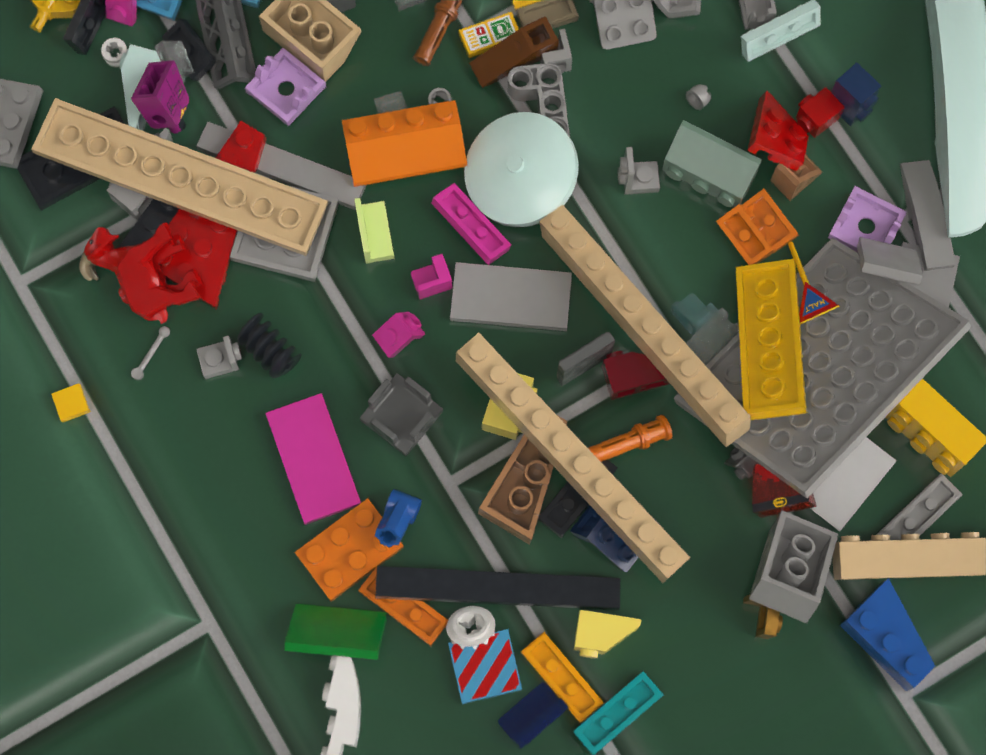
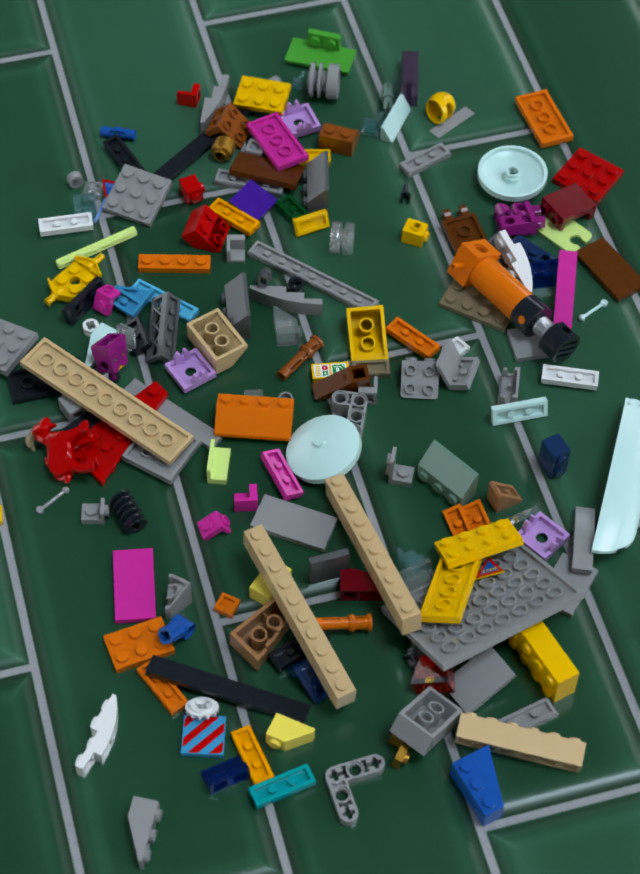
camera: 15 degrees right, 20 degrees down
(336, 631) = (112, 685): green tile -> none
(382, 461) = (178, 595): none -> light grey slope
(401, 412) = (201, 569): dark grey panel -> none
(455, 453) = (227, 605): none -> orange tile
(698, 96) = (453, 437): light grey hinge -> none
(700, 687) = (342, 784): none -> light grey beam
(778, 134) = (497, 467): red wing -> none
(787, 266) = (478, 543): none -> yellow plate
(819, 112) = (530, 463): red brick -> none
(832, 202) = (523, 515): none -> clear tile
(889, 261) = (546, 555): light grey tile -> none

